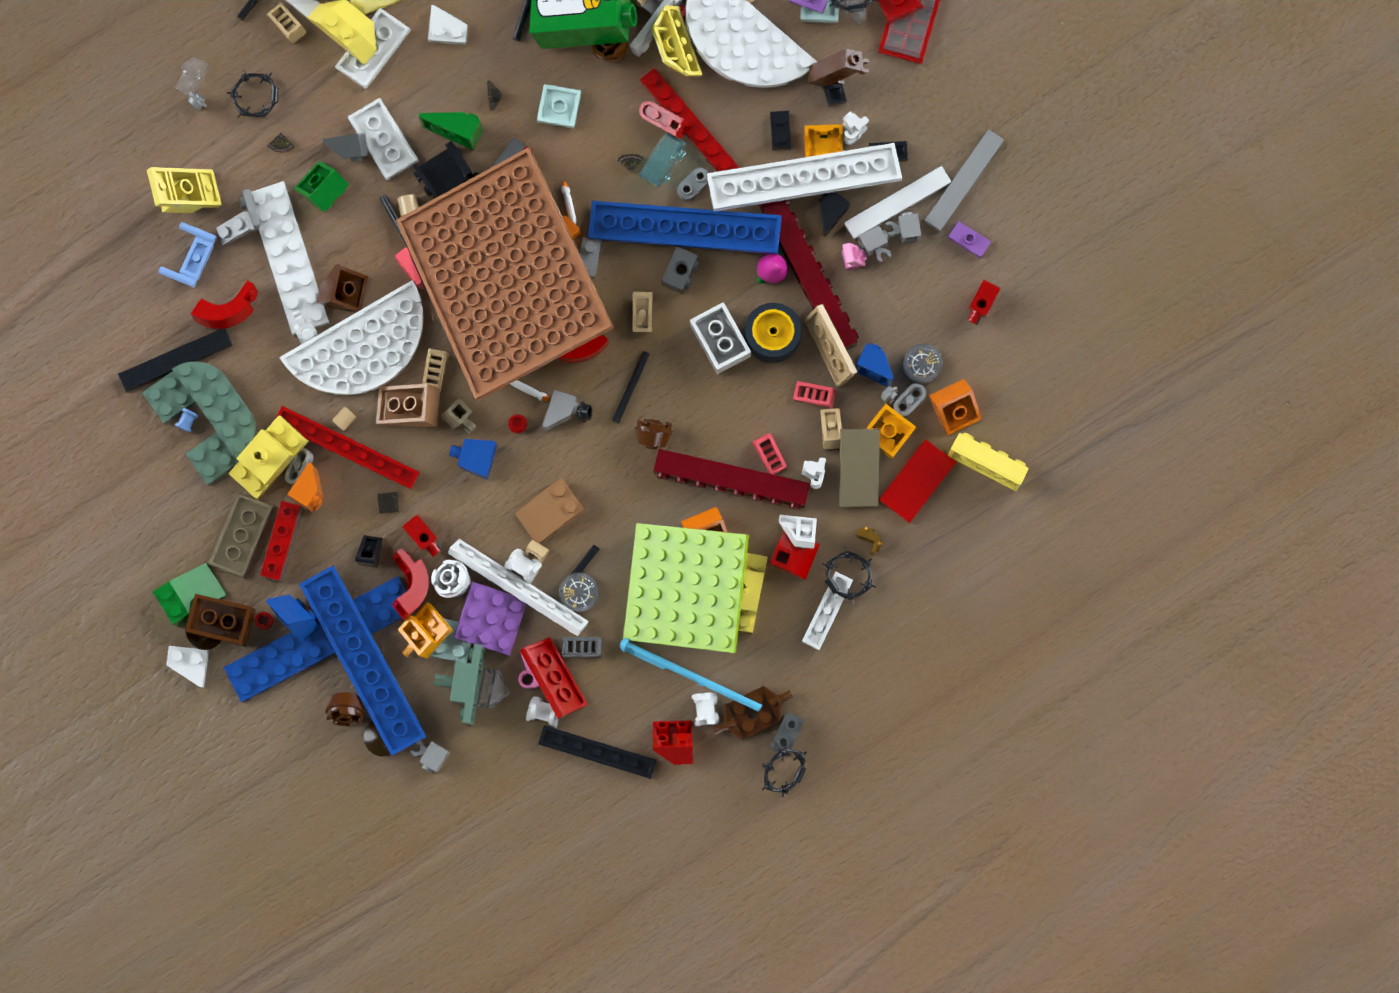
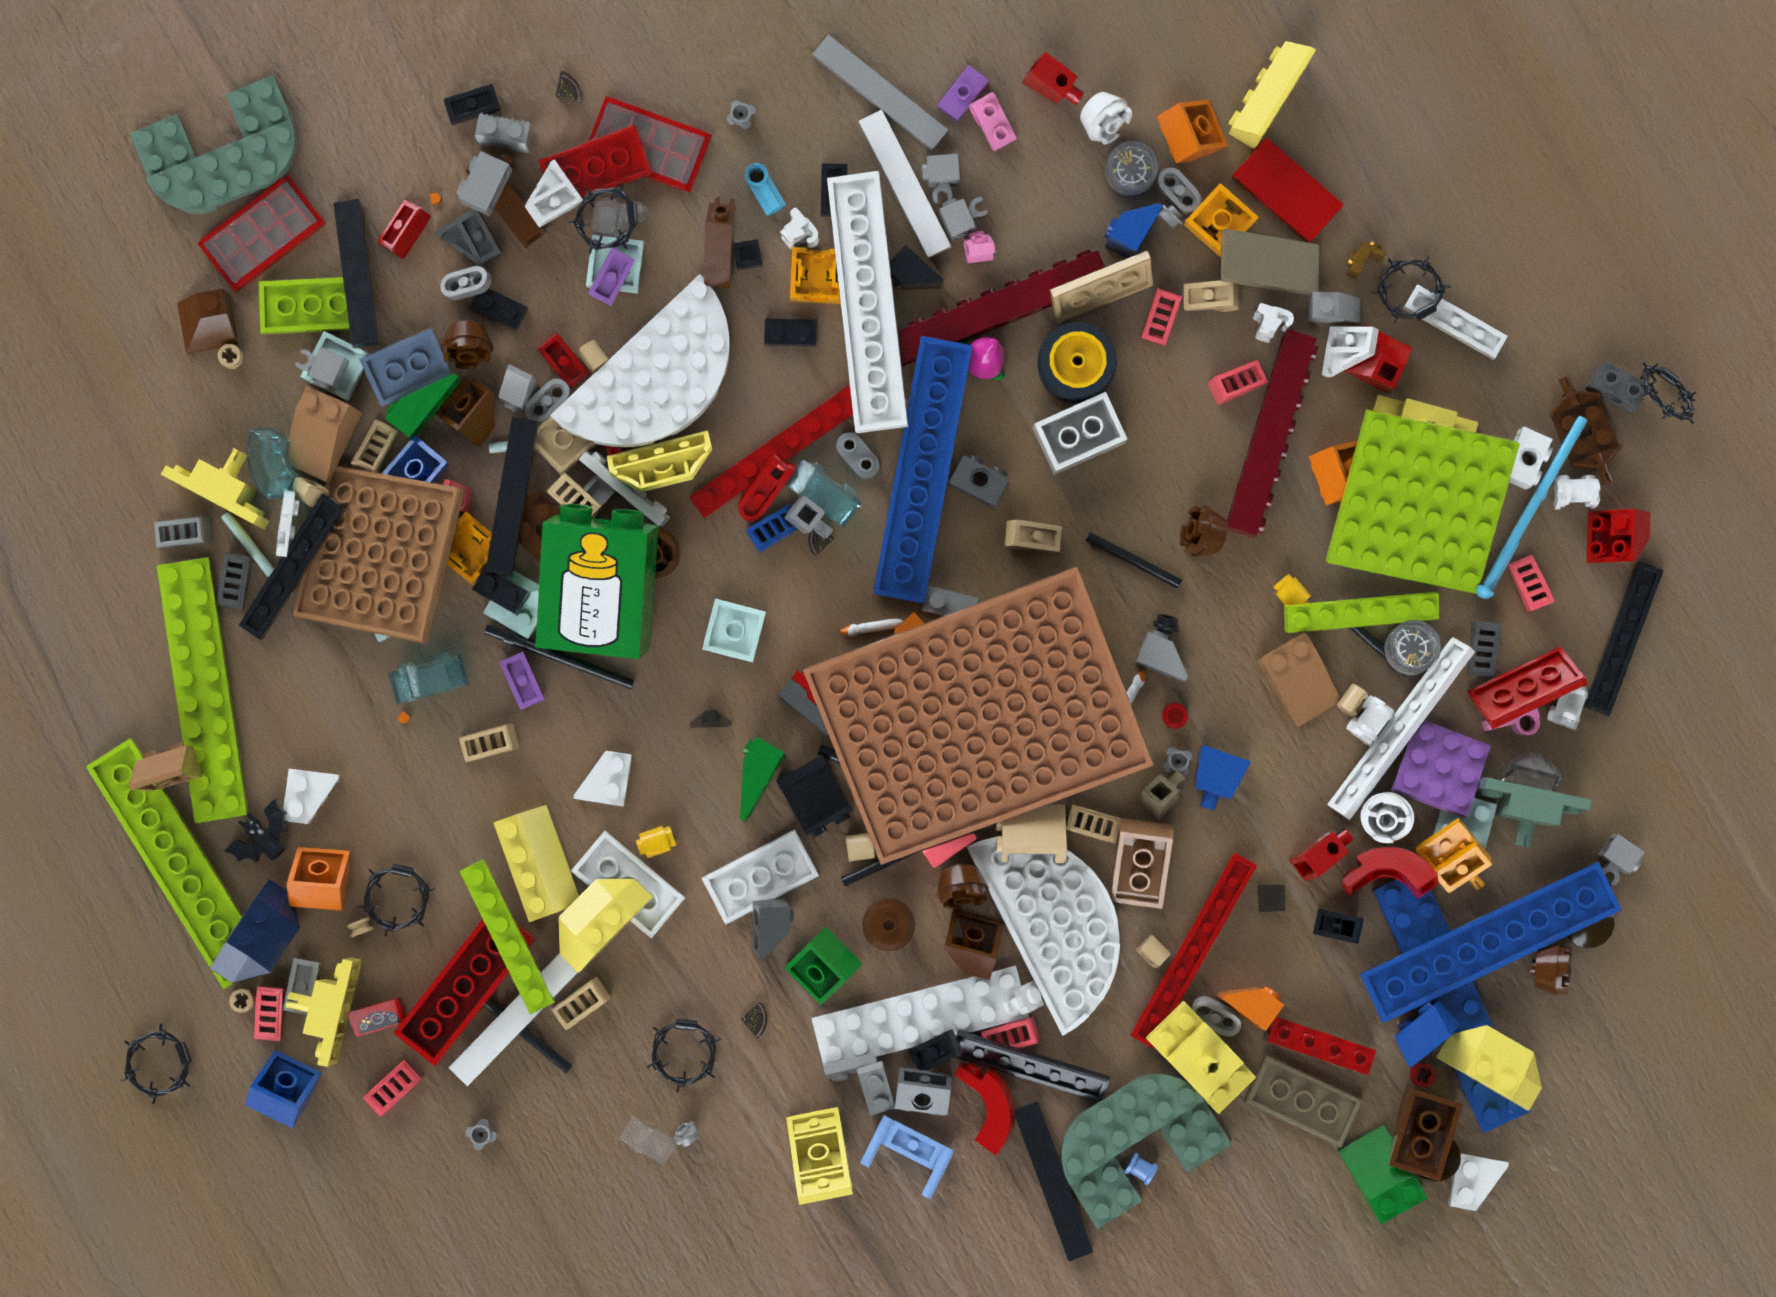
camera: 90 degrees left, 5 degrees up
(234, 261) = (923, 1091): none -> brick
(256, 336) = (1032, 1066): none -> black tile
(263, 268) = (936, 1051): none -> black plate
(272, 668) = (1494, 1063): none -> light yellow wedge
(280, 334) = (1007, 1027): none -> coral slope
(353, 230) = (888, 925): none -> reddish brown cone
(383, 277) = (961, 886): none -> reddish brown cone
(403, 64) = (655, 841): none -> yellow brick
(424, 325) = (1034, 833): none -> tan panel
(484, 423) = (1184, 758): none -> light grey plate
(602, 552) = (1361, 612): none -> lime plate
(613, 502) = (1291, 591): none -> yellow brick
(622, 692) = (1522, 587): none -> coral slope
(640, 125) = (751, 531): none -> blue slope
(643, 146) = (806, 516): none -> light grey brick
(718, 661) = (1539, 448): none -> white brick
(830, 520) = (1333, 308): none -> light grey slope
(882, 102) = (764, 191): none -> medium azure piece
(943, 79) = (739, 107): none -> light grey plate
(949, 261) = (992, 121): none -> bright pink plate
(958, 340) = (1104, 117): none -> white cone

